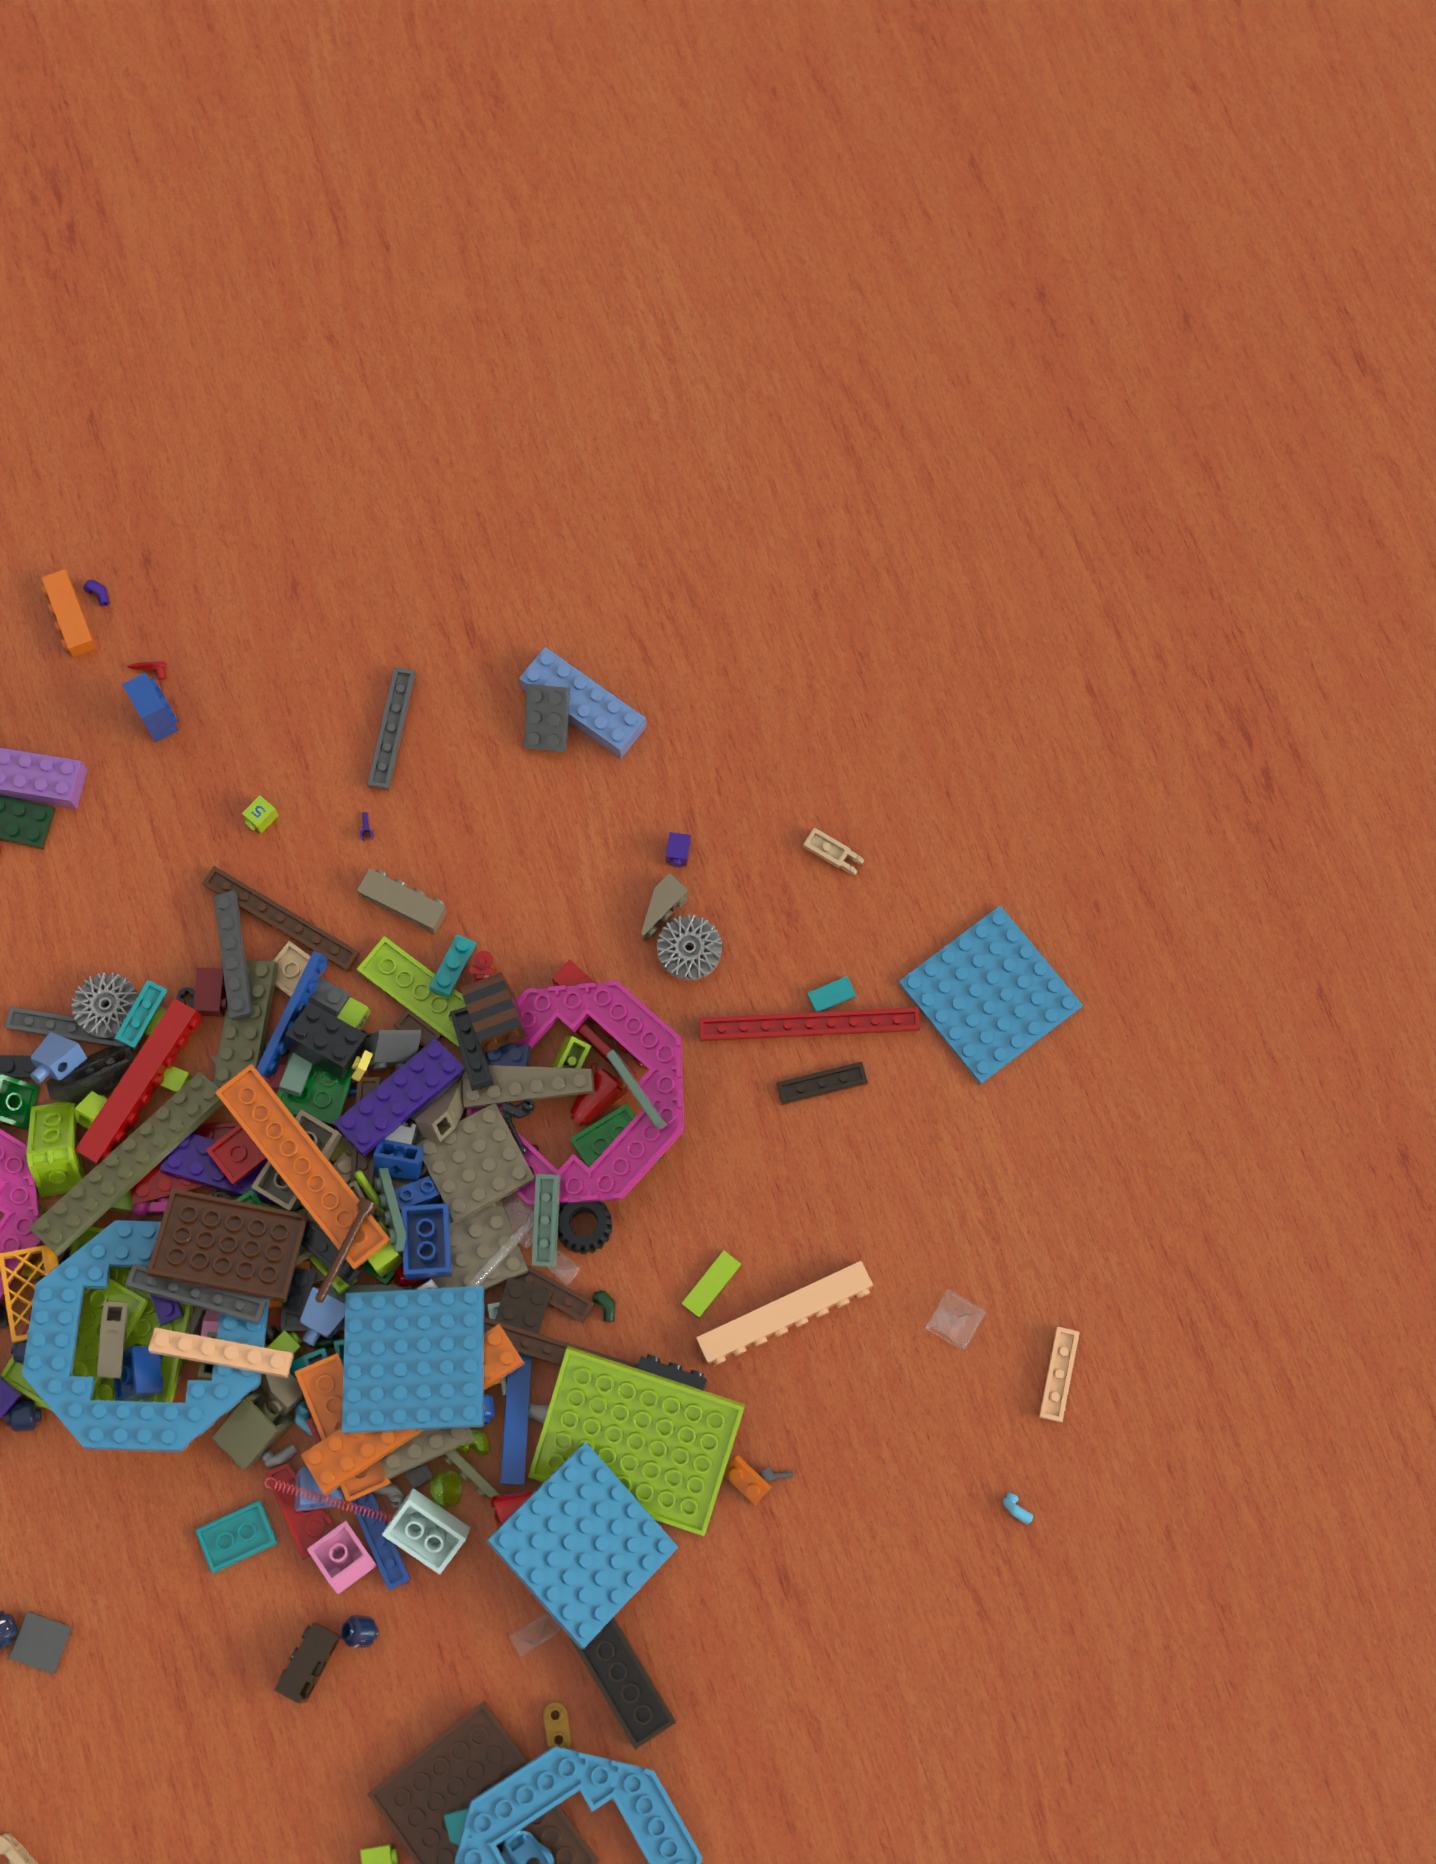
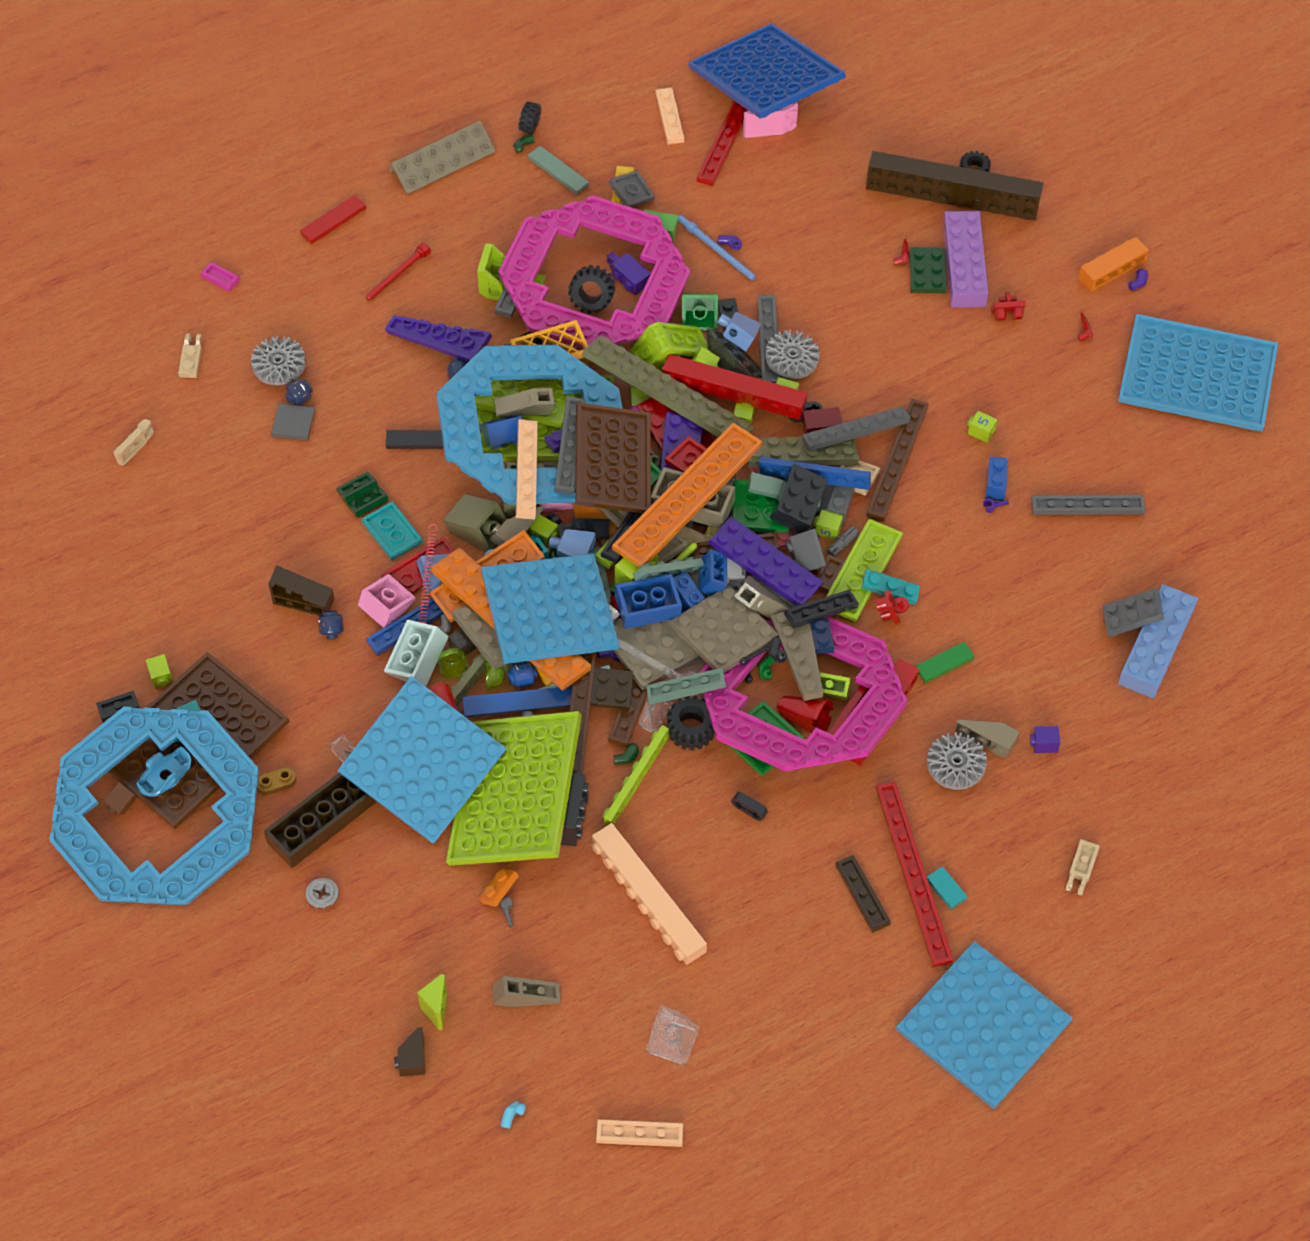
camera: 80 degrees right, 15 degrees down
(104, 735) = (1008, 304): none -> red hips
(108, 1487) = (414, 439): none -> black tile
(141, 1014) = (789, 375): teal plate -> none
(151, 706) = (1047, 327): blue brick -> none
(174, 1567) = (362, 494): none -> dark green slope
(243, 565) = (1198, 372): none -> dark azure plate
(280, 1458) = (456, 541): light grey arm -> none
(335, 816) = (996, 478): none -> blue brick
(360, 1065) = (785, 529): light yellow plate -> none
(365, 1209) = (662, 540): reddish brown piece -> none
(378, 1006) = (842, 541): none -> dark grey axle
(402, 901) = (937, 541): dark tan brick -> none
(494, 1012) = (855, 614): slope -> none
(525, 1128) = (764, 668): none -> green arm
(558, 931) = (945, 662): none -> green tile
(636, 1089) = (811, 725): sand green tile -> none
(644, 1307) = (639, 771): none -> lime plate
(698, 1181) = (749, 806): none -> black beam
(704, 1692) = (319, 885): none -> light grey gear
(711, 1284) = (662, 833): lime tile -> none
(880, 1470) = (524, 992): none -> dark tan slope
(880, 1574) = (433, 1000): none -> lime slope
(934, 1610) = (411, 1055): none -> dark brown slope

